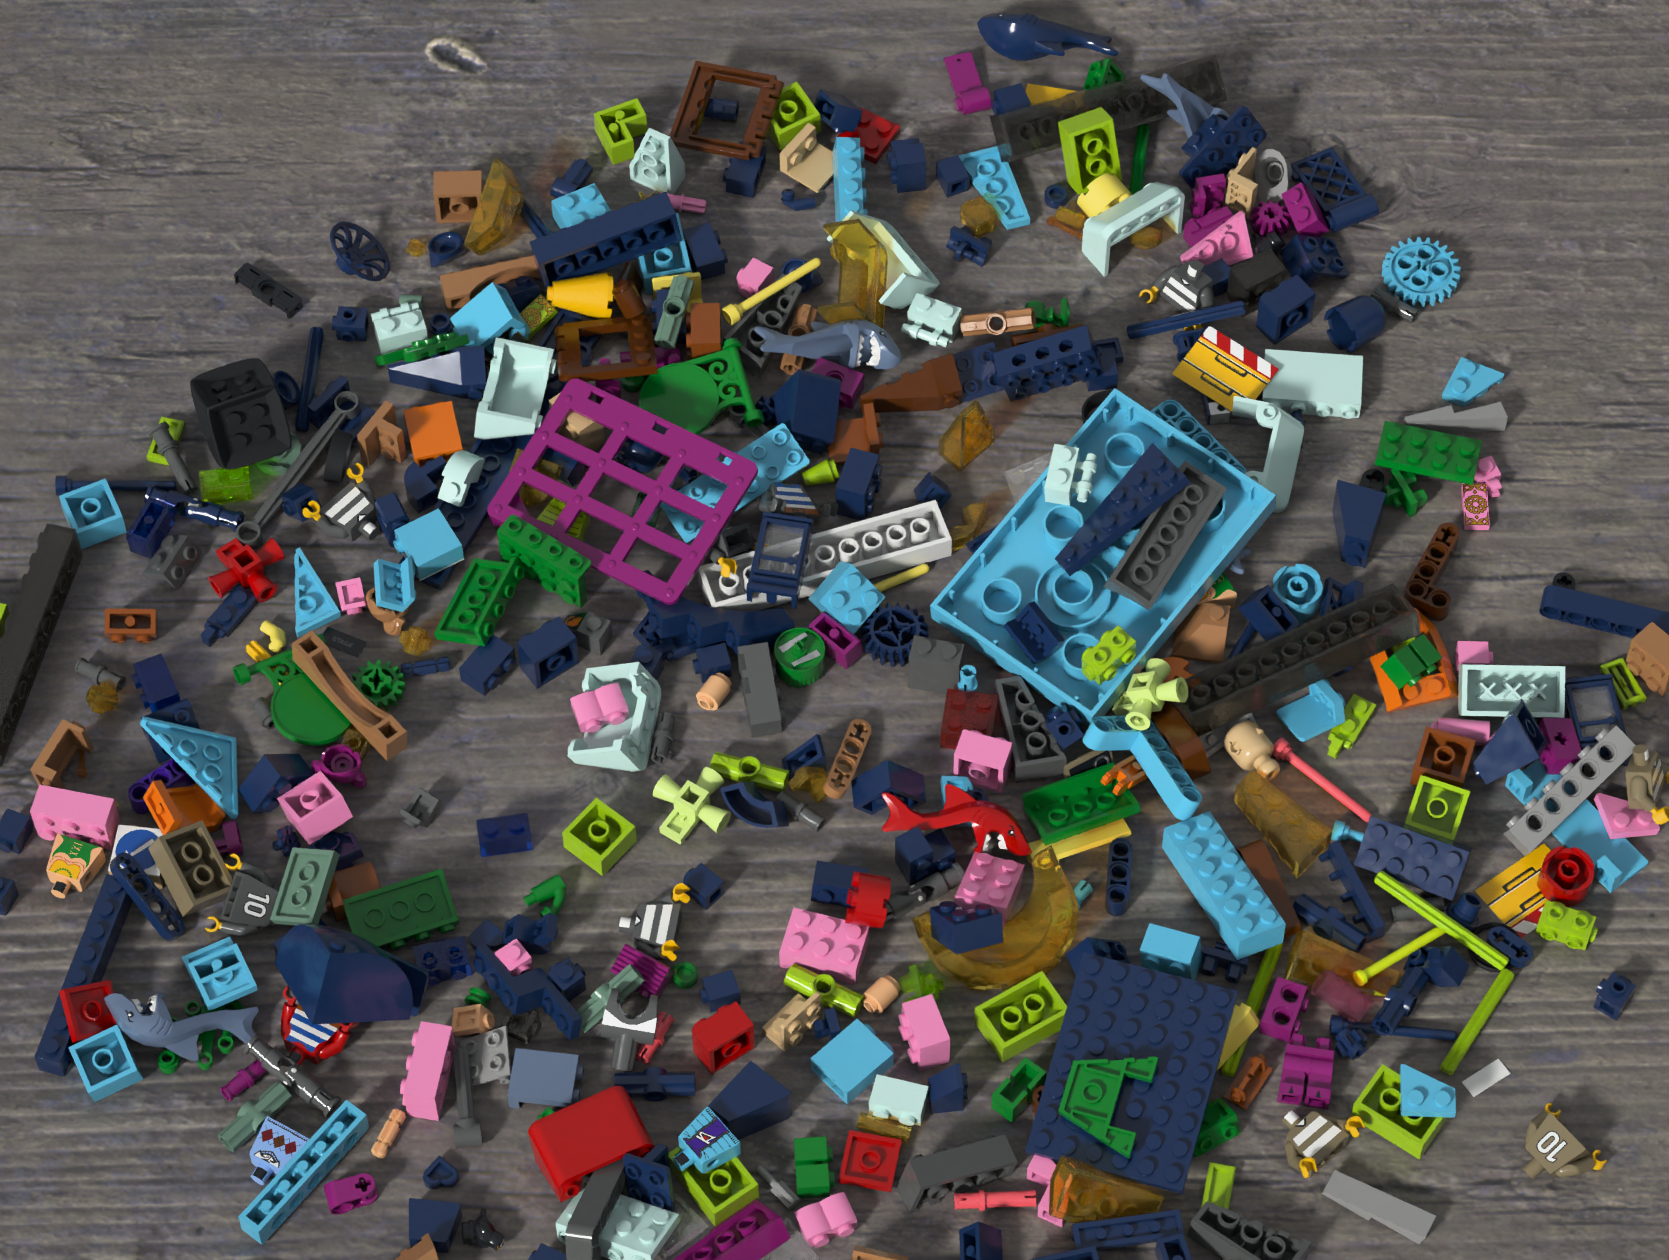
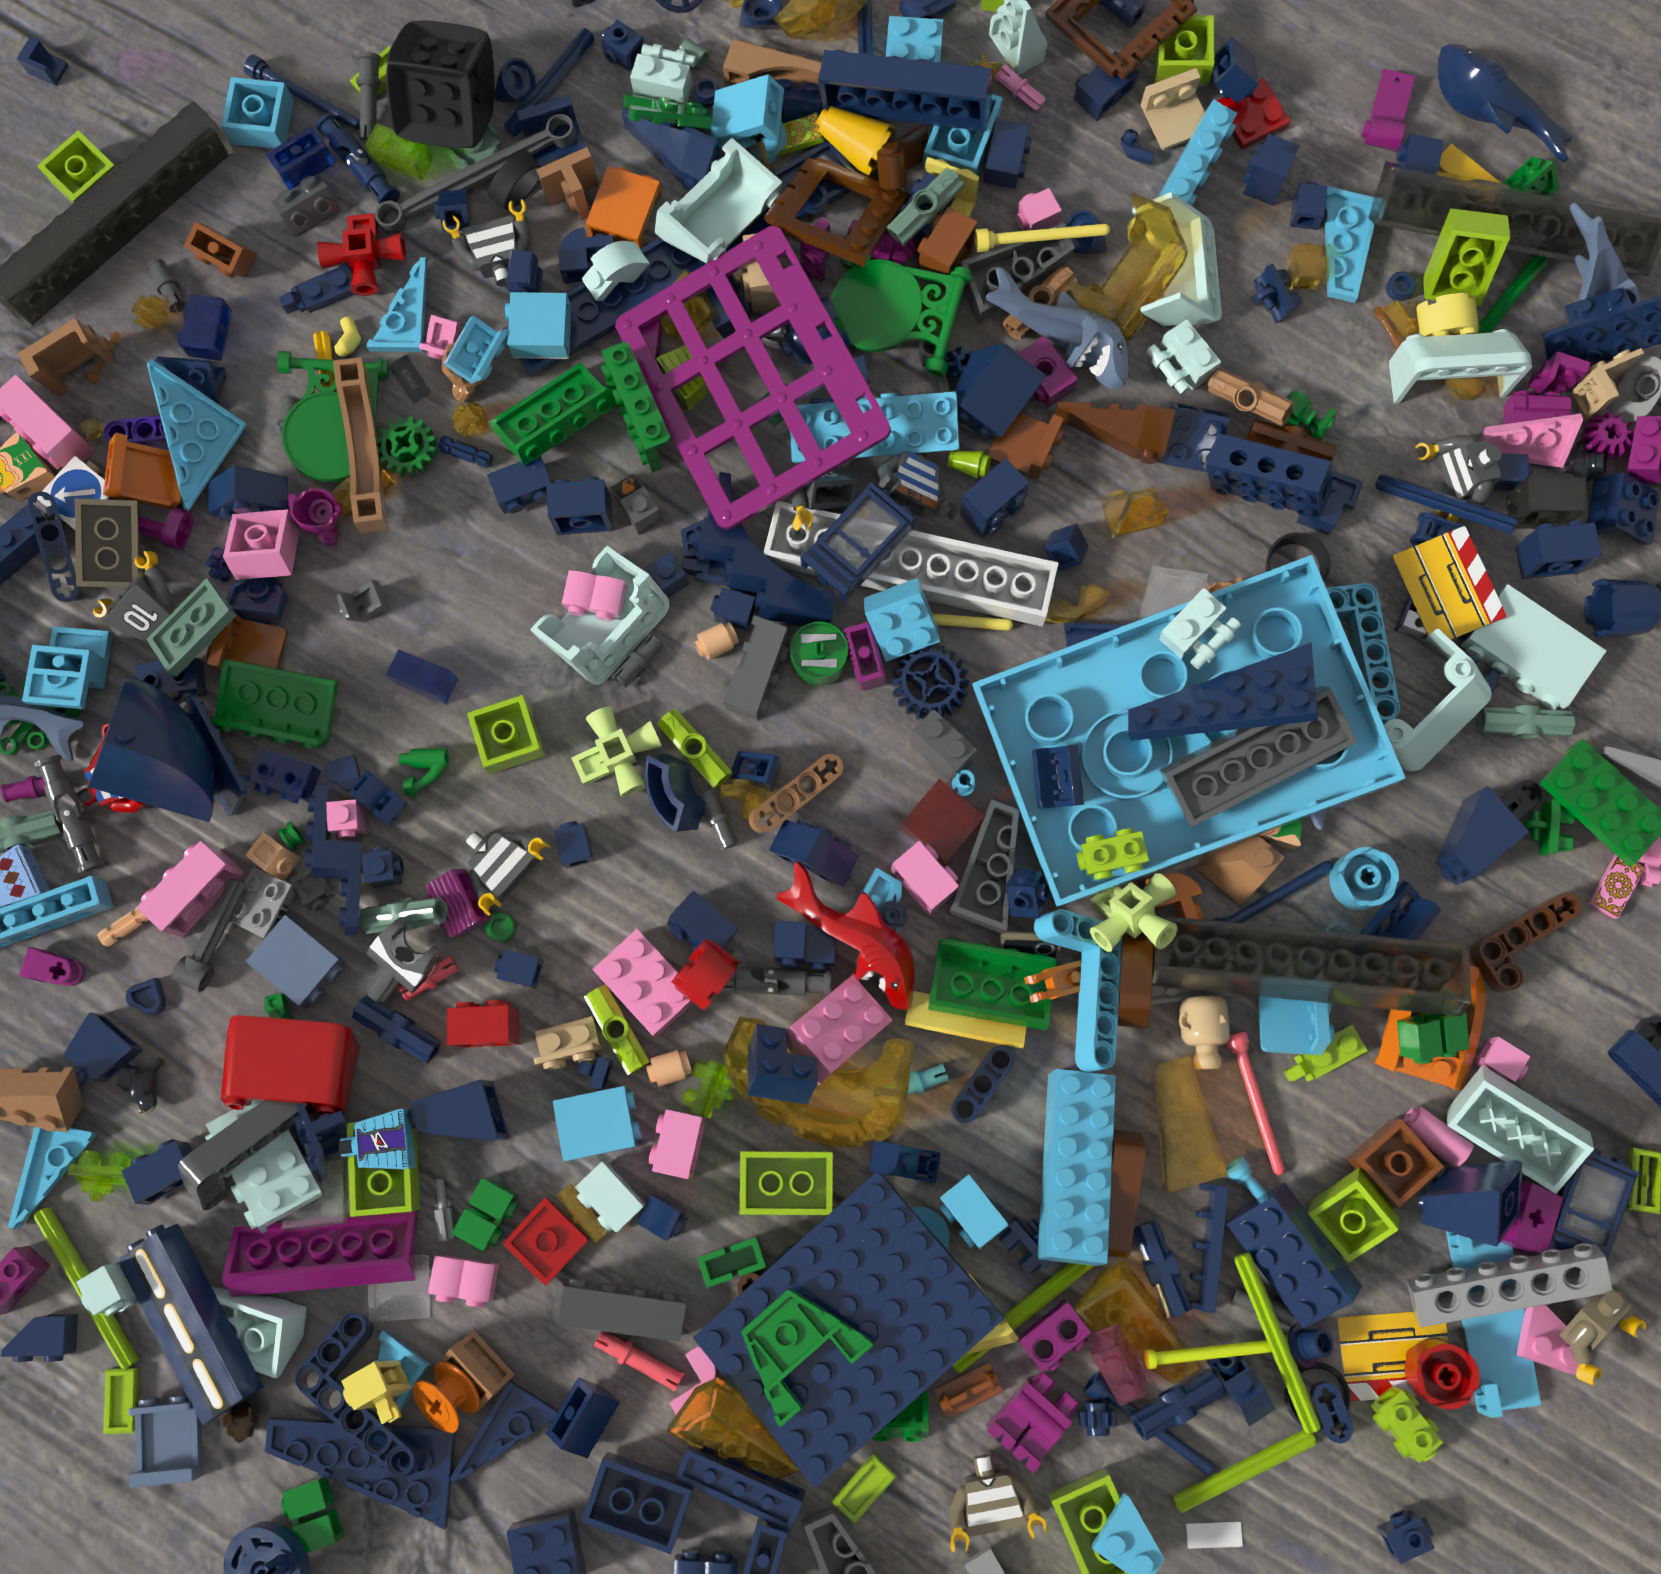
camera: 35 degrees right, 20 degrees up
(1268, 613) = (1318, 890): dark blue brick -> none
(1340, 433) = (1526, 722): none -> sand green piece

